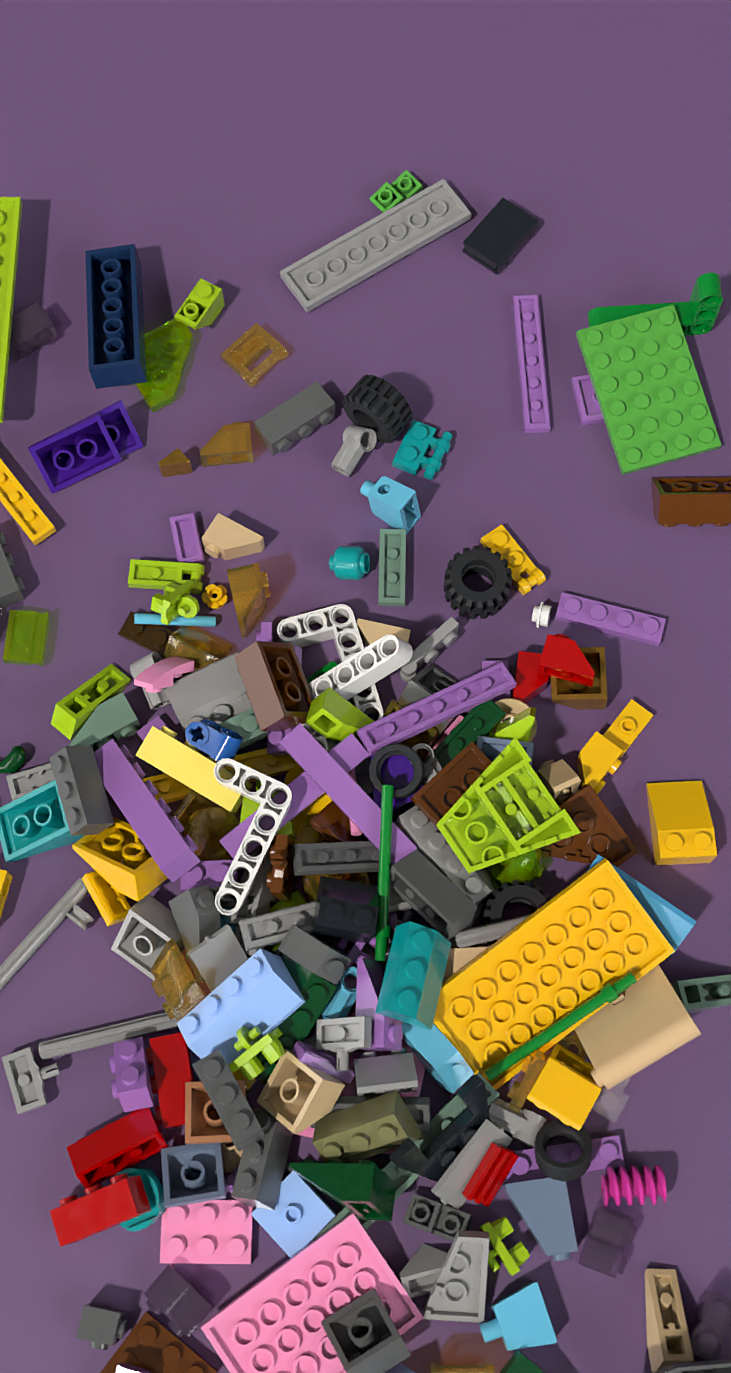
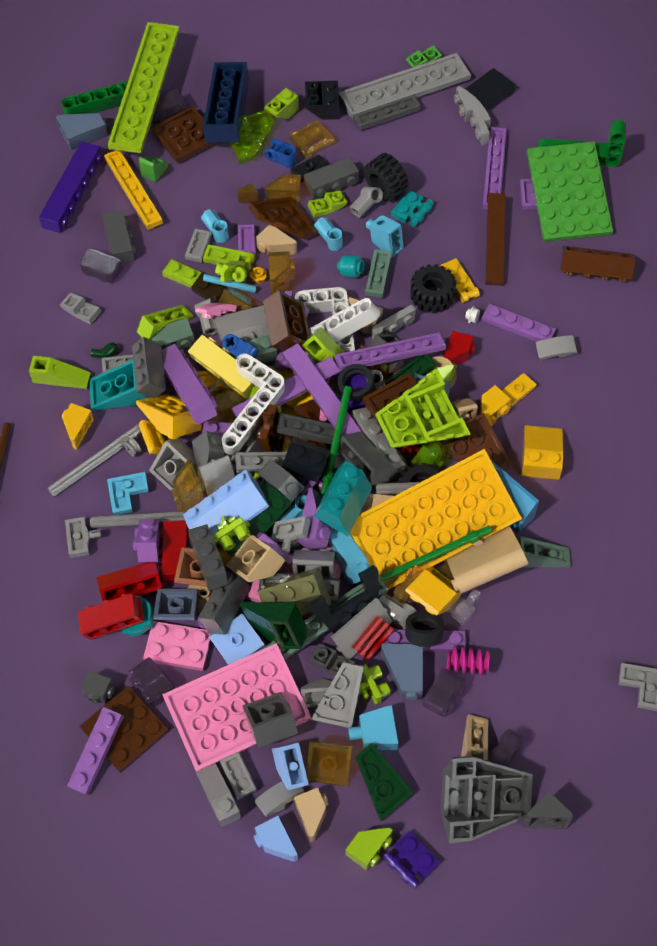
camera: 10 degrees right, 10 degrees down
(21, 436) = (152, 167): none -> bright green slope
(26, 637) = (131, 281): clear neon green plate -> none
(57, 376) = (182, 134): none -> reddish brown plate
(76, 989) = (122, 488): none -> medium azure plate
(86, 447) = (192, 175): dark purple slope -> none
(100, 612) = (181, 273): none -> lime plate
(116, 561) = (198, 245): none -> light grey plate
(135, 524) = (216, 226): none -> medium azure piece
(208, 386) = (281, 153): none -> blue piece
(236, 494) = (284, 215): none -> reddish brown plate
(258, 286) = (322, 99): none -> black slope
(258, 403) = (308, 166): none -> black plate
(296, 462) = (331, 202): none -> lime slope
(307, 511) = (329, 233): none -> medium azure piece
(357, 293) = (387, 112): none -> dark grey plate
(487, 275) = (474, 113): none -> light grey slope
(553, 484) = (495, 239): none -> reddish brown tile
(565, 661) = (480, 336): red slope -> none
(582, 696) = (489, 352): pearl gold slope -> none
(671, 650) = (556, 346): none -> light grey slope

